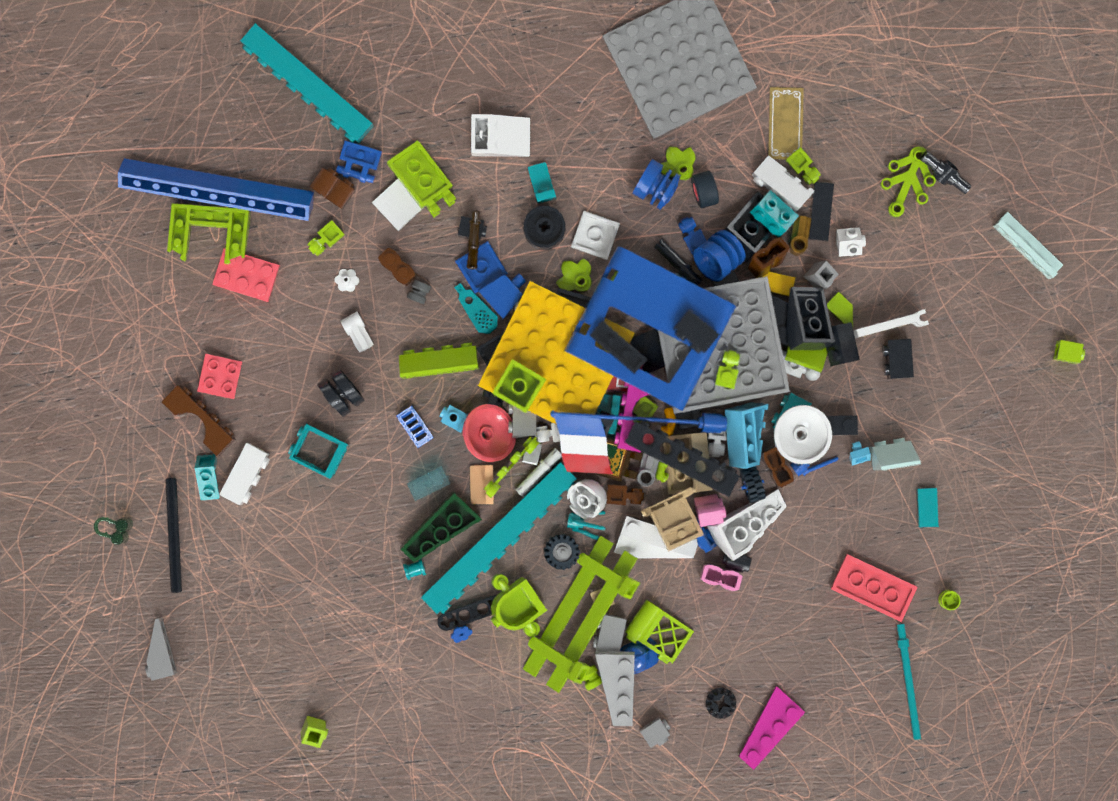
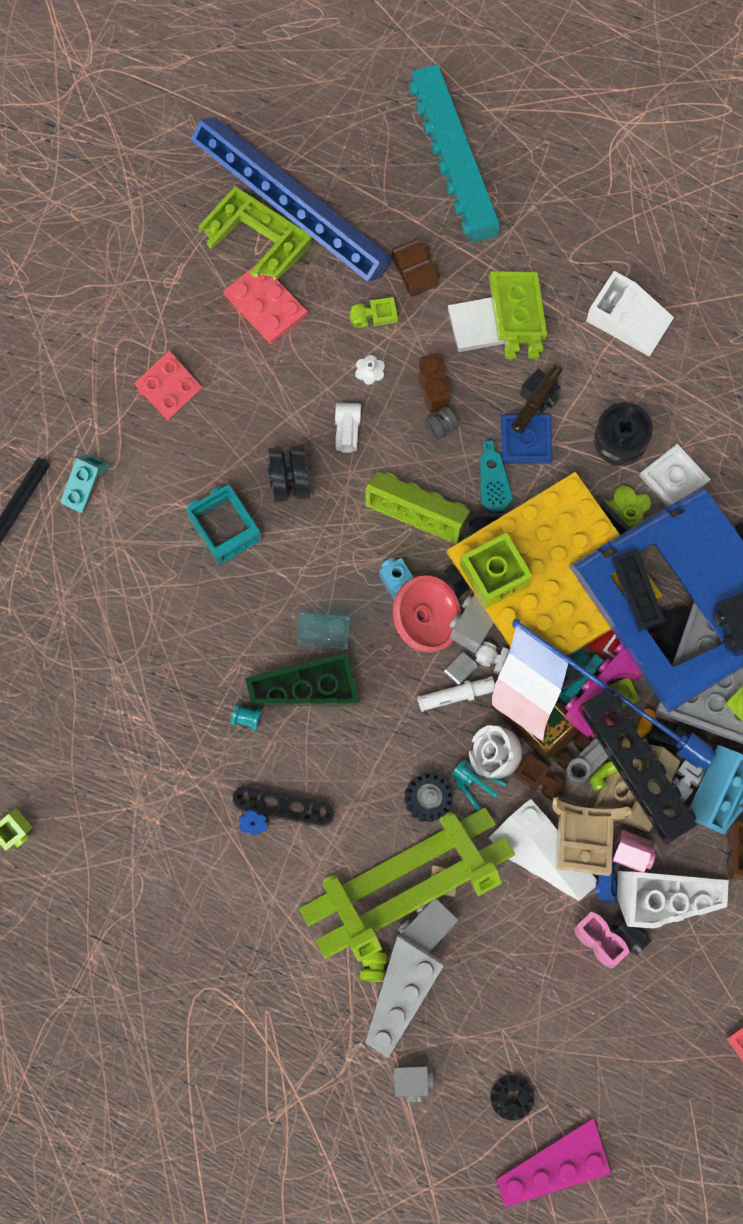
camera: 30 degrees right, 15 degrees down
(216, 437) = (120, 444): reddish brown arch -> none
(245, 474) = (126, 501): white brick -> none
(361, 156) = (465, 253): blue plate -> none
(411, 409) = (346, 540): slope -> none
(479, 478) = (383, 669): light nougat panel -> none
(493, 487) = (421, 662): lime plant -> none
(498, 538) = (363, 739): teal brick -> none
(503, 294) = (533, 475): blue torso -> none
(516, 605) = (337, 827): lime piece -> none
(541, 183) = (647, 388): teal bracket -> none
(644, 624) = (476, 942): lime piece -> none
(644, 656) = (455, 980): blue piece -> none
(752, 484) = (702, 853): black wheel -> none

